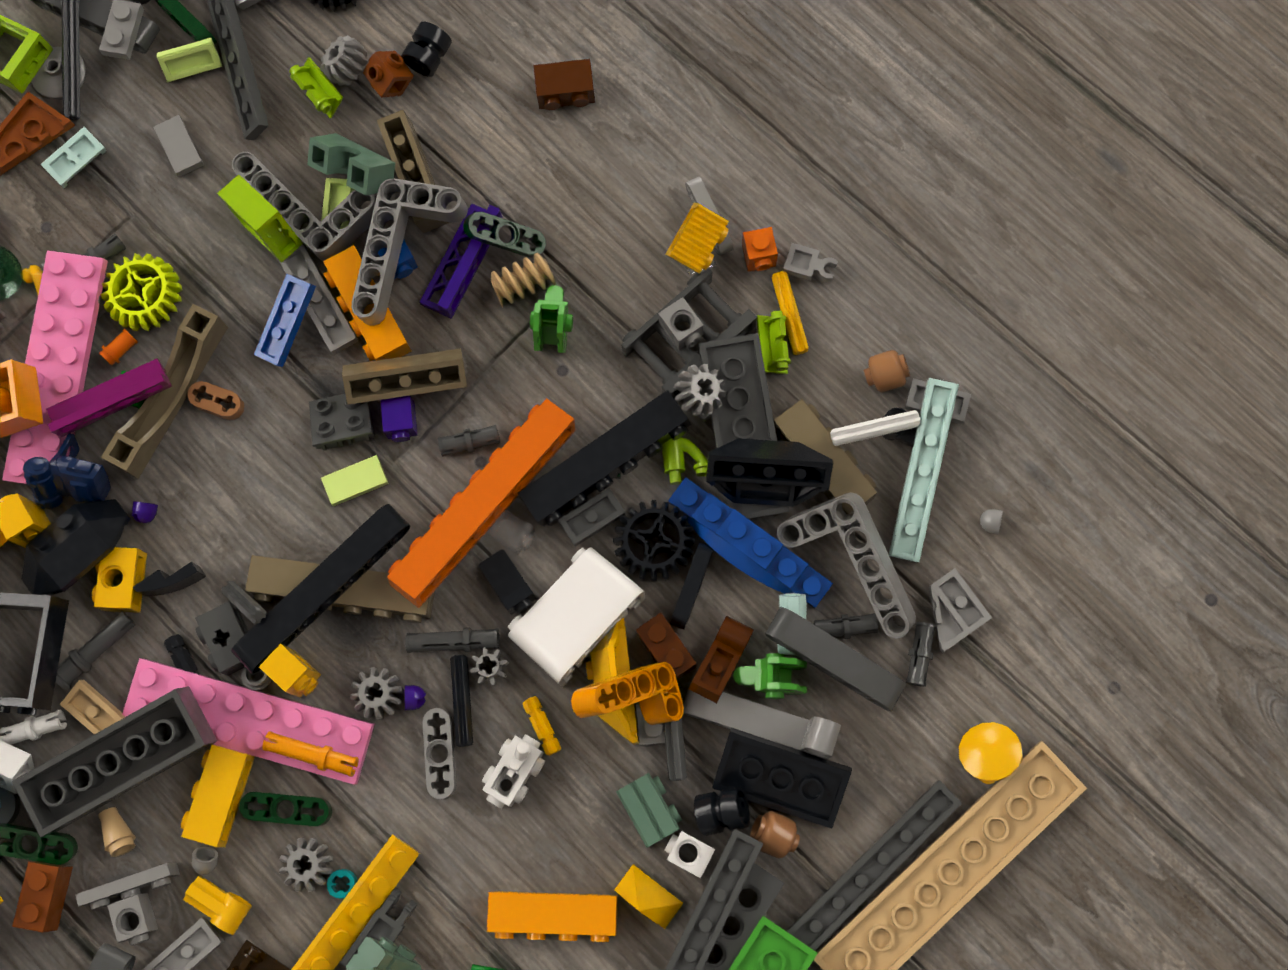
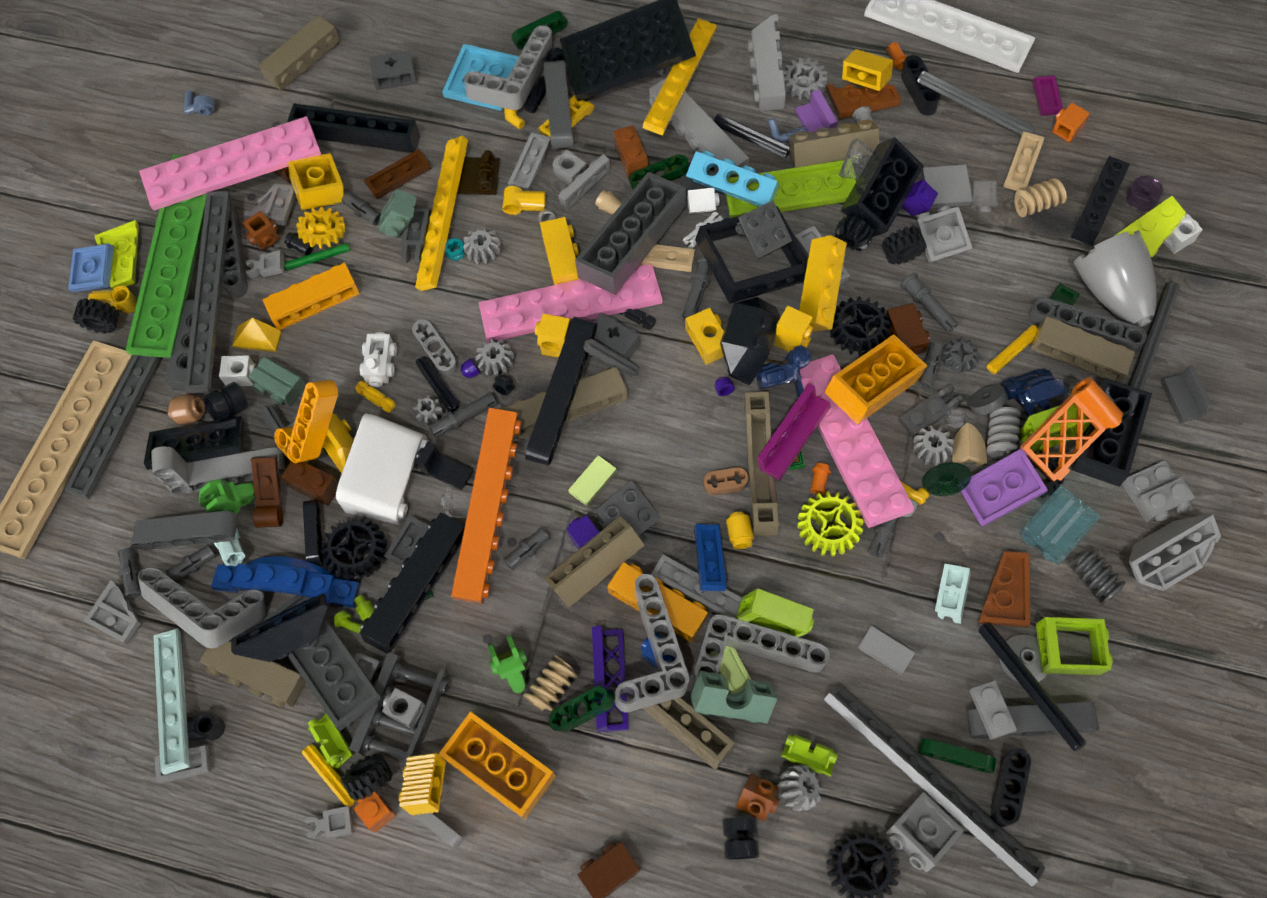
camera: 150 degrees right, 10 degrees down
(161, 583) = (677, 348): black slope -> none
(189, 59) = (926, 722): yellowish green tile -> none
(236, 335) = (740, 530): none -> yellow brick
(264, 798) = (513, 277): dark green beam -> none
(323, 757) = (501, 299): light orange pin -> none
(386, 653) = (503, 385): none -> black plate
(617, 226) = (497, 765): none -> light orange brick
(708, 397) = (358, 654): light grey gear -> none
(751, 267) = (366, 776): none -> black tyre
(875, 428) = (216, 706): white axle -> none
(887, 371) = (230, 765): medium nougat head -> none
(990, 752) = (55, 531): yellow dish -> none
(991, 520) = (108, 694): light grey hinge -> none

